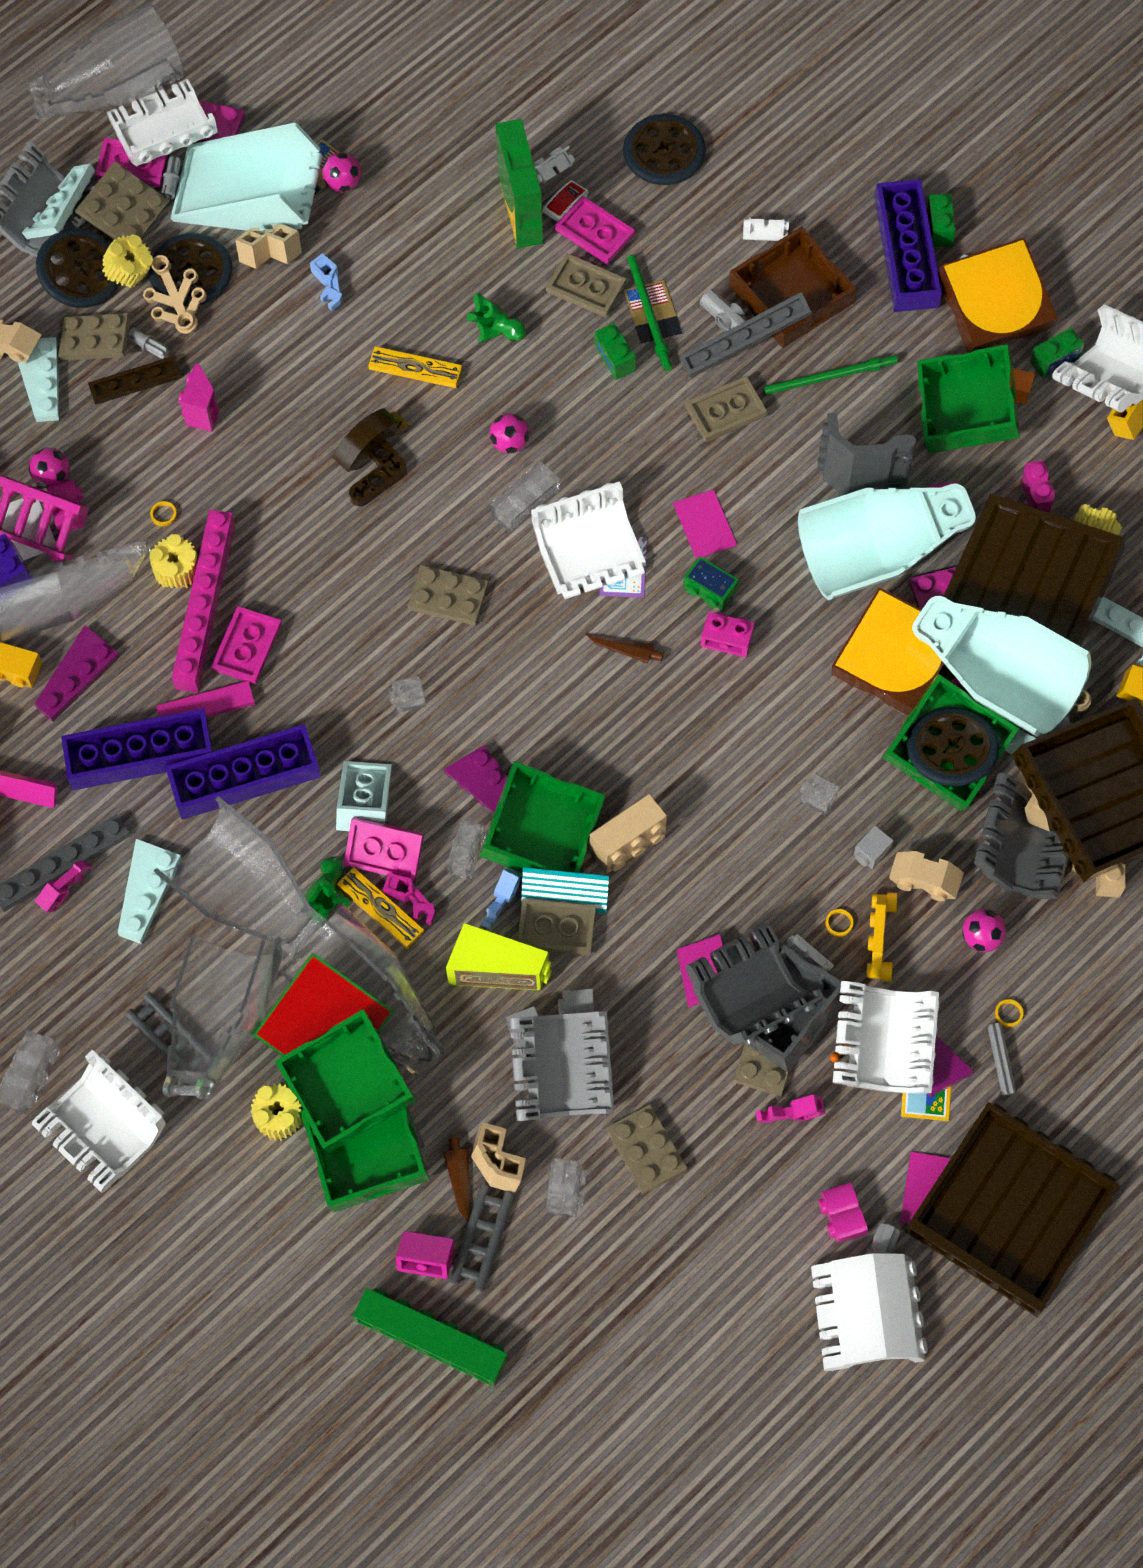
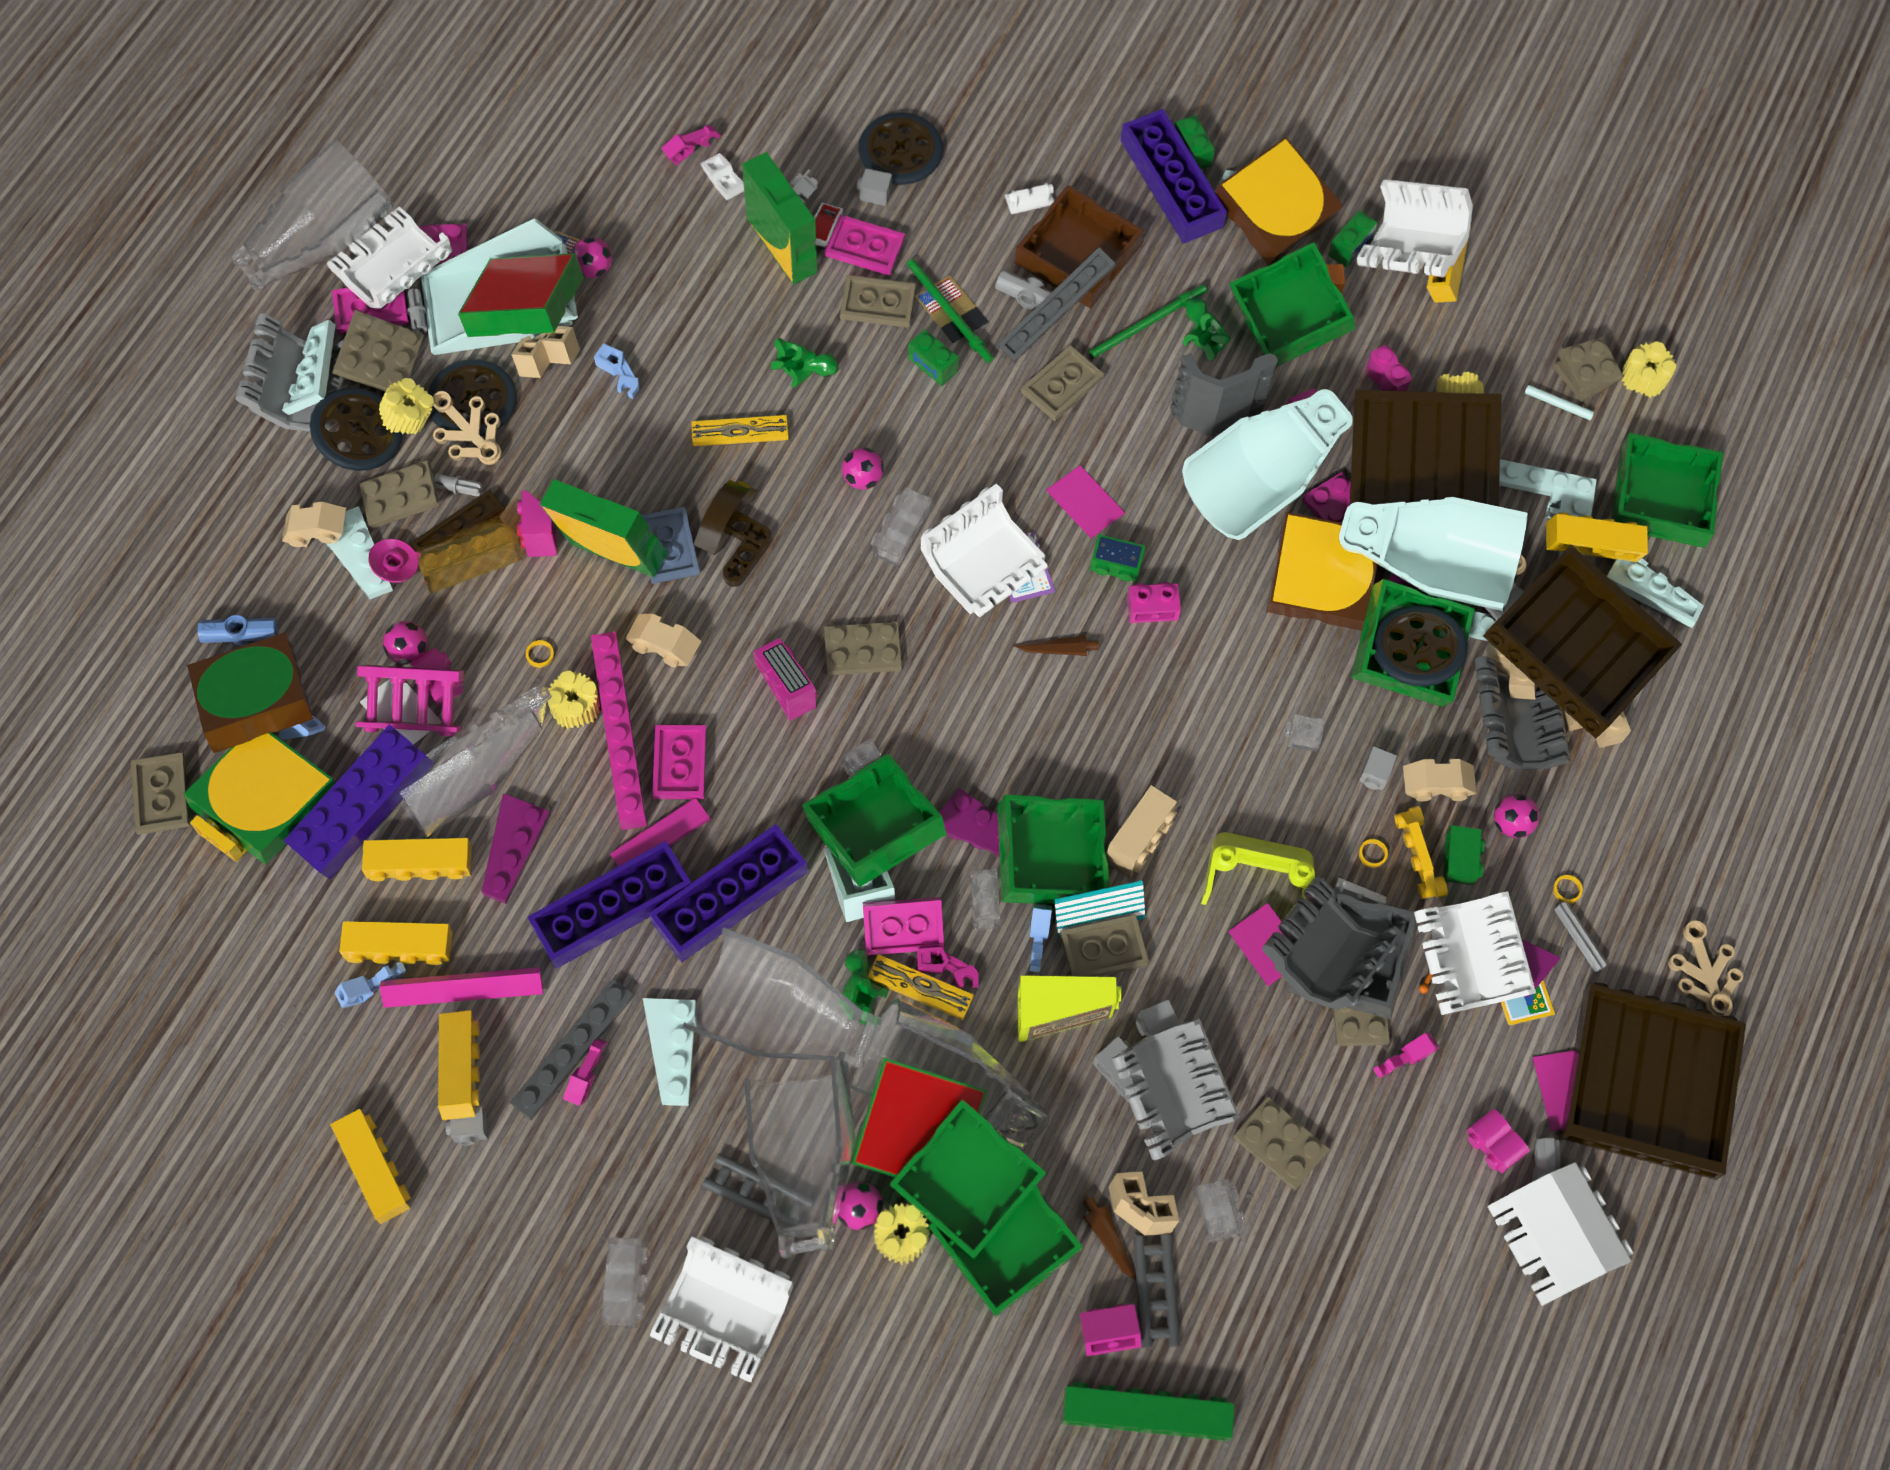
camera: 25 degrees left, 0 degrees up
(68, 385) = (393, 552): none -> dark pink dish
(132, 407) = (467, 553): none -> clear yellow windscreen
(249, 1074) = (860, 1205): none -> dark pink piece
(252, 417) = (603, 528): none -> green tile
(261, 188) = (521, 295): none -> tile
(278, 537) = (672, 643): none -> tan brick
(311, 451) = (675, 535): none -> sand blue plate
(368, 600) = (786, 678): none -> dark pink wedge
(393, 748) = (874, 820): none -> green tile
(463, 92) = (683, 145): none -> dark pink piece
(486, 123) = (722, 176): none -> white slope
(625, 179) = (875, 187): none -> light grey brick
(759, 905) = (1232, 849): none -> neon yellow windscreen
(882, 400) = (1207, 331): none -> green animal
(919, 950) = (1462, 855): none -> green brick
(1108, 1132) = (1706, 973): none -> tan plant

